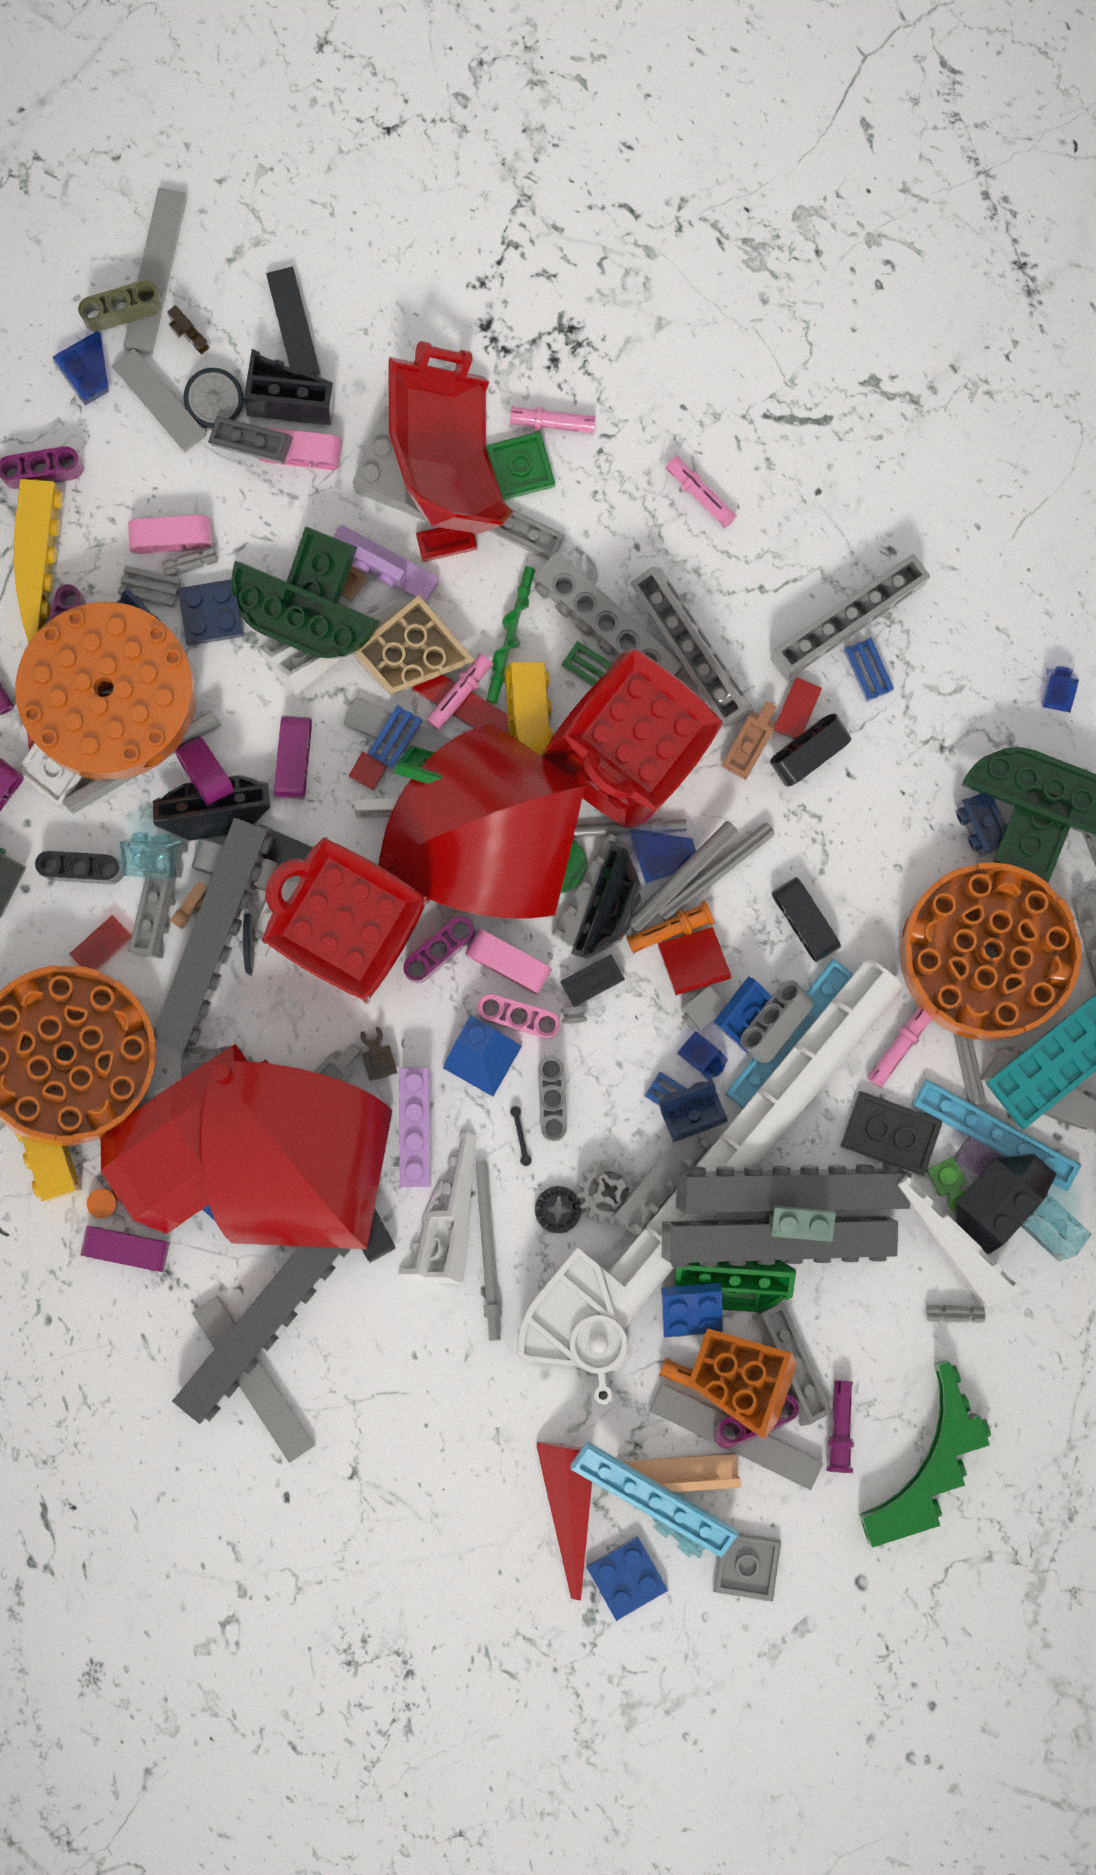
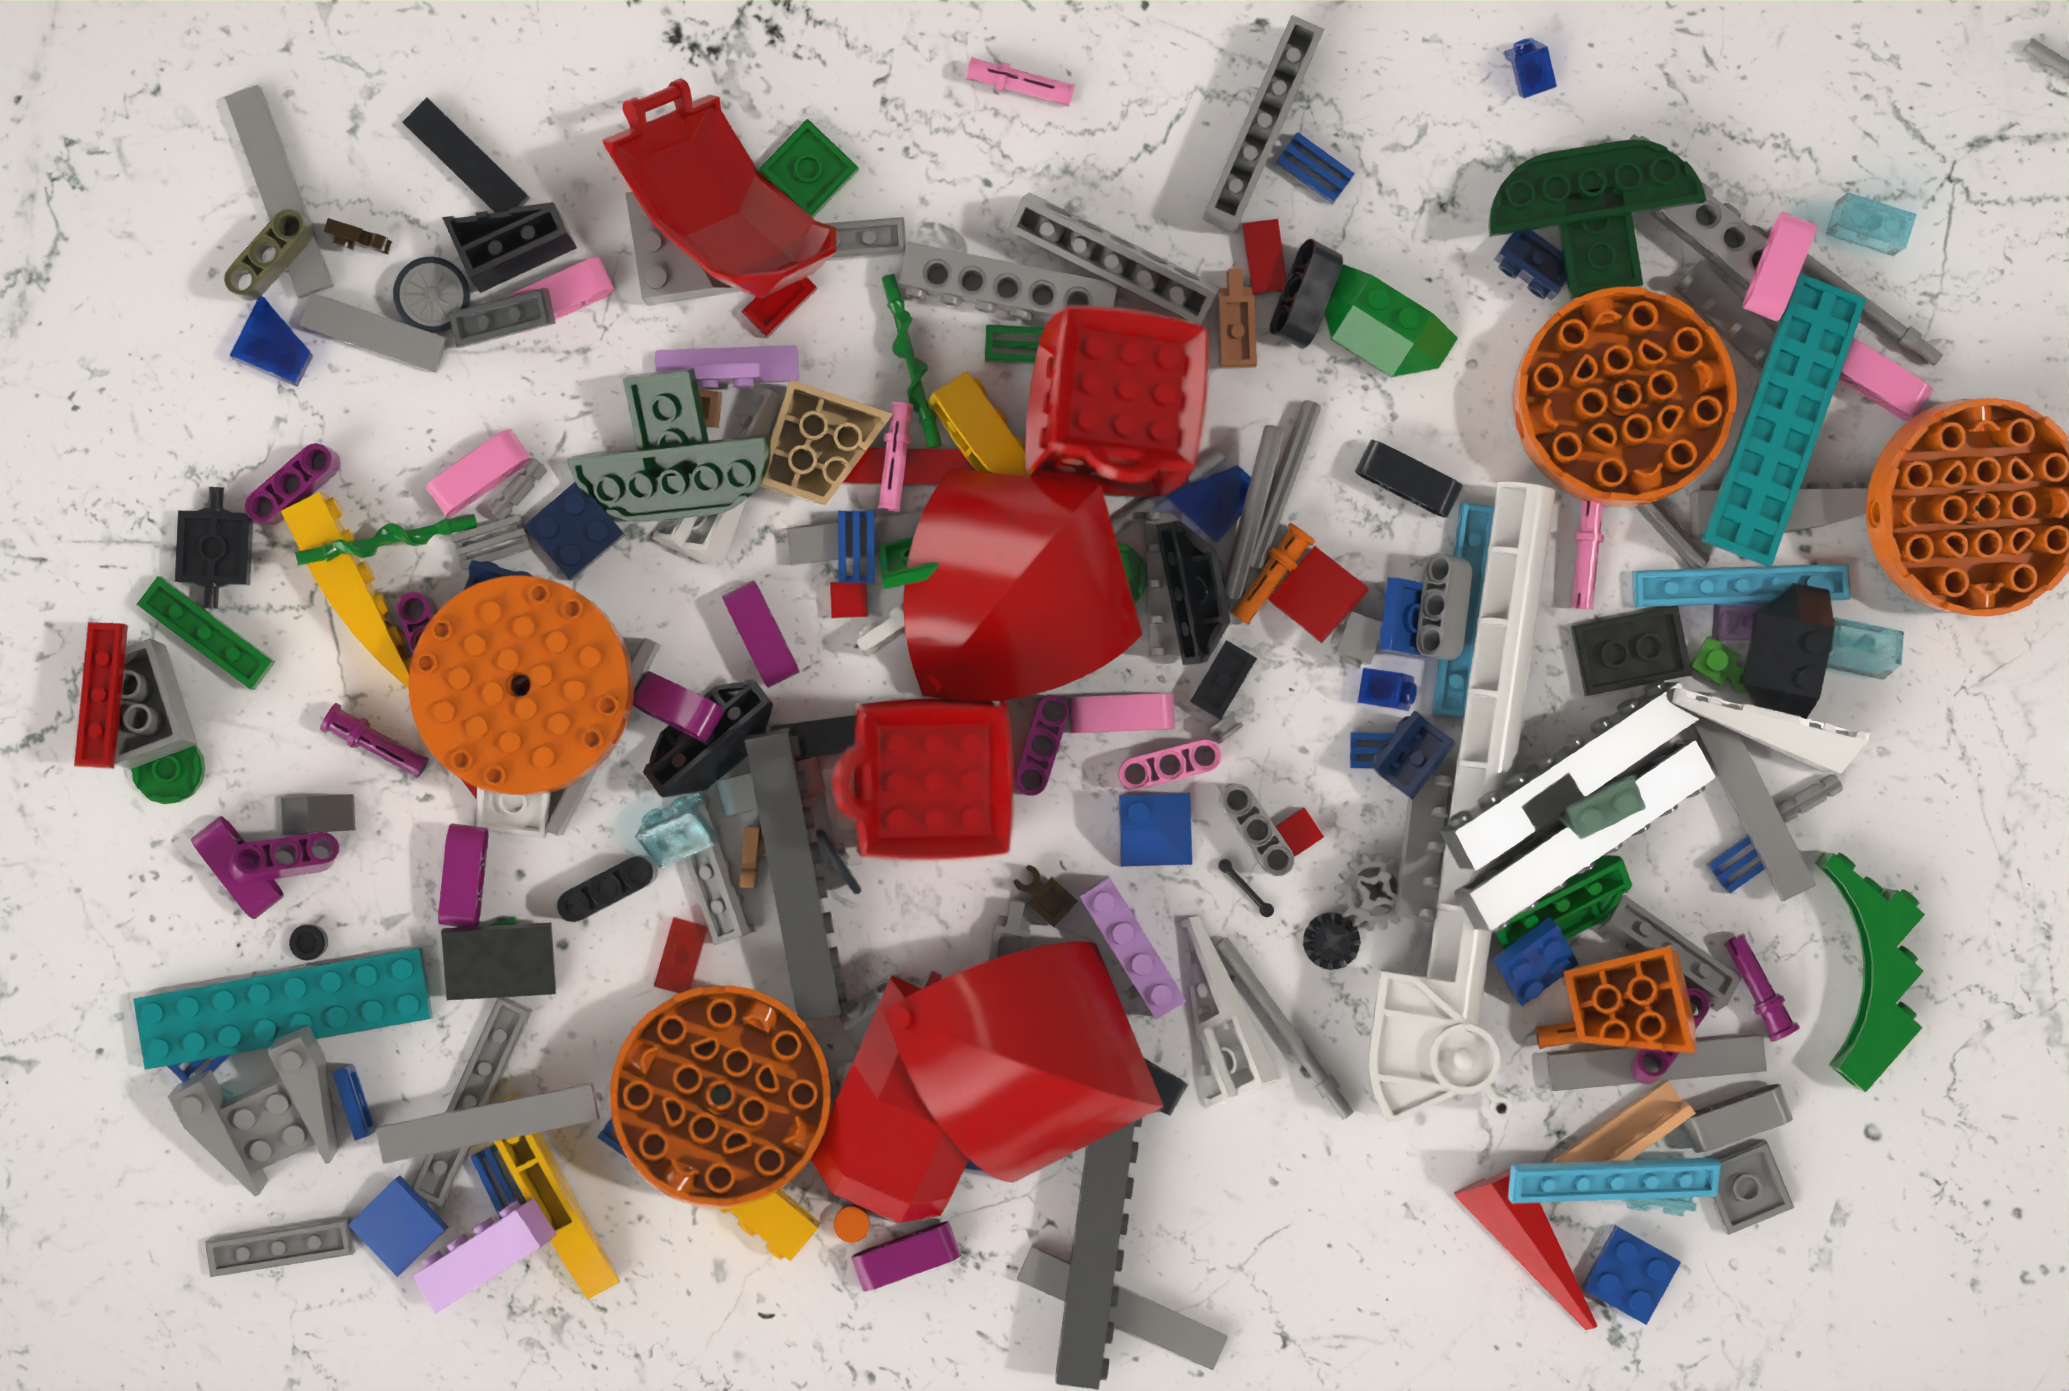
camera: 30 degrees left, 5 degrees up
(81, 538) = (385, 535): none -> green piece
(554, 420) = (813, 98): bright pink pin -> none
(581, 1119) = (1299, 831): none -> red tile
(770, 1511) = (1738, 1118): none -> light grey beam
(852, 805) = (1385, 326): none -> green wedge
(912, 1328) = (1726, 855): none -> blue tile
(913, 1296) = (1754, 808): none -> light grey tile

